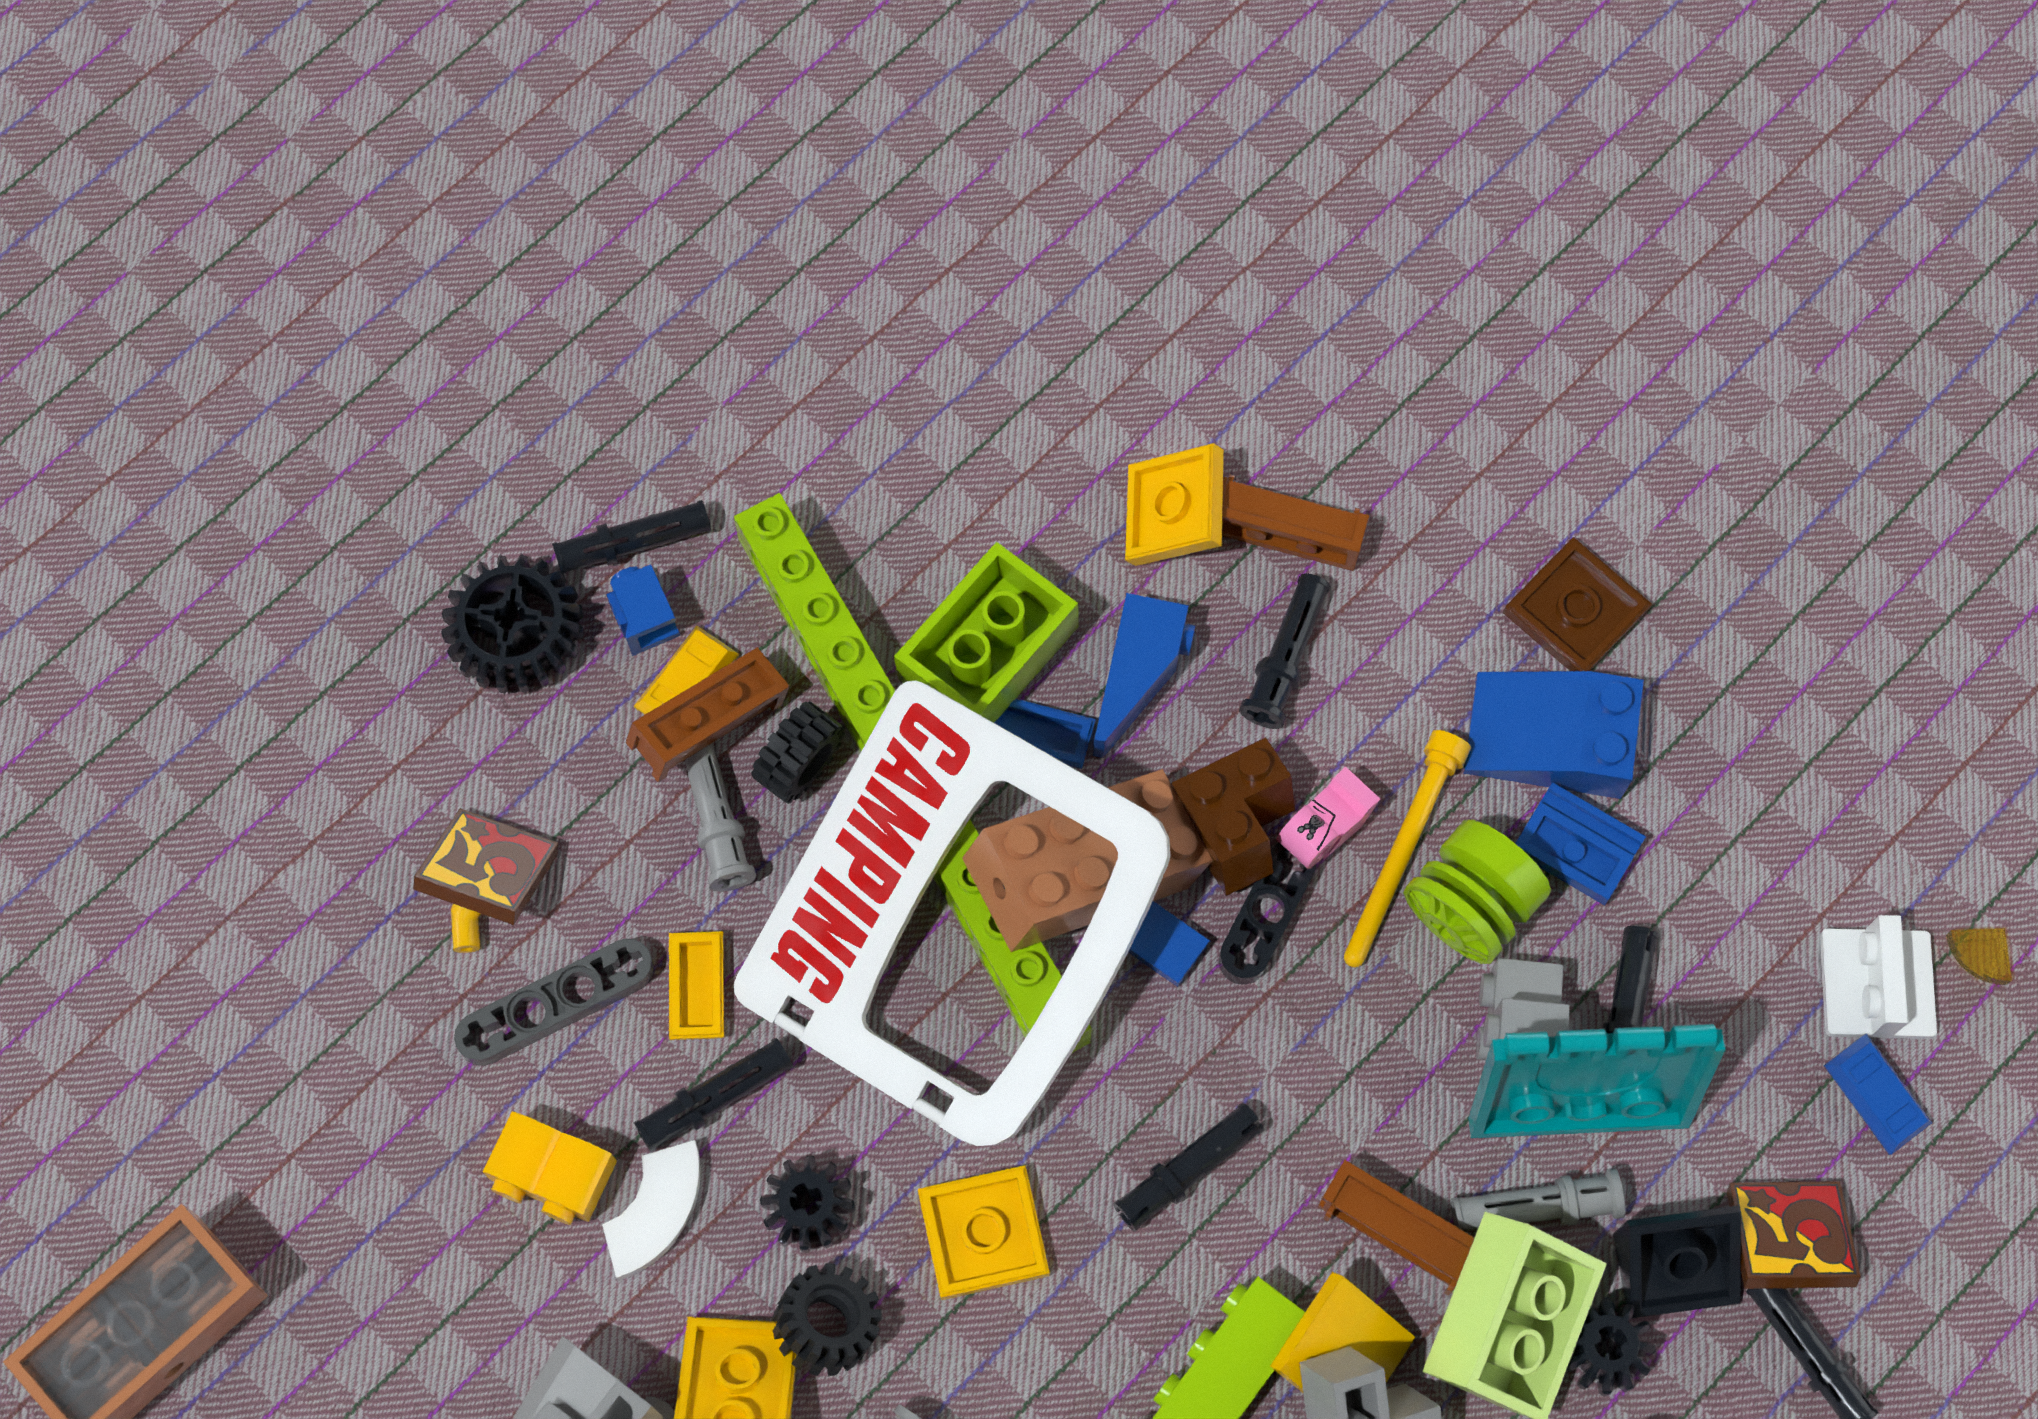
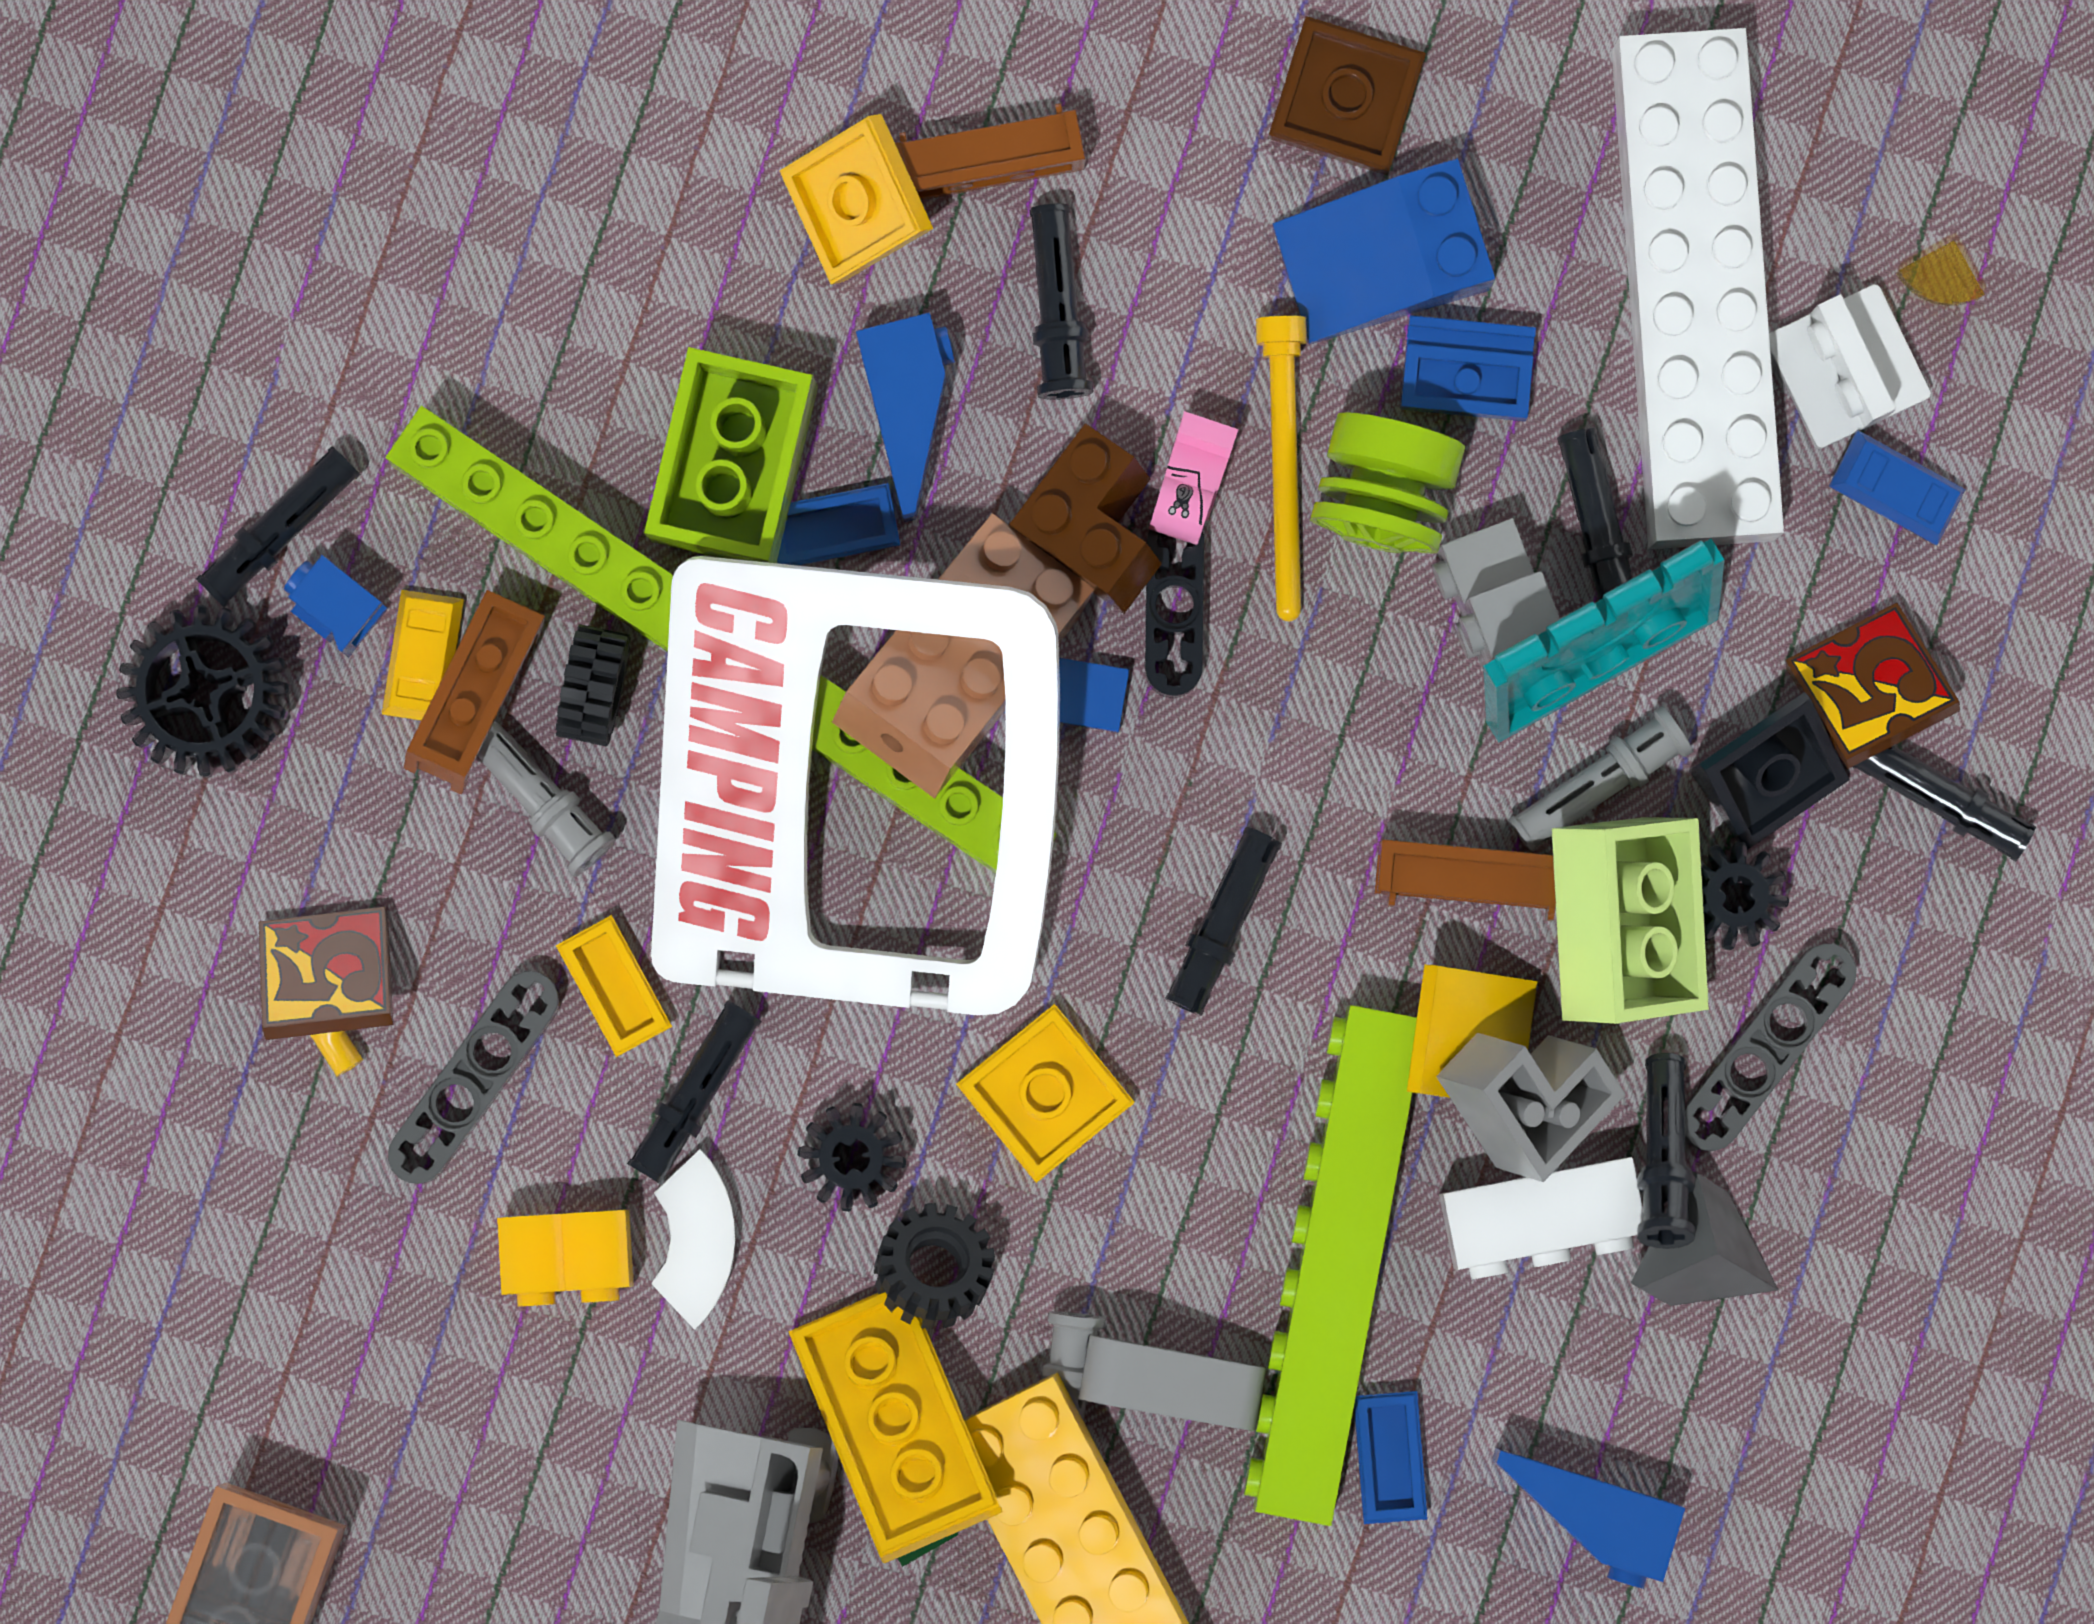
camera: 30 degrees left, 15 degrees up
(1788, 863) = (1697, 288): none -> white brick

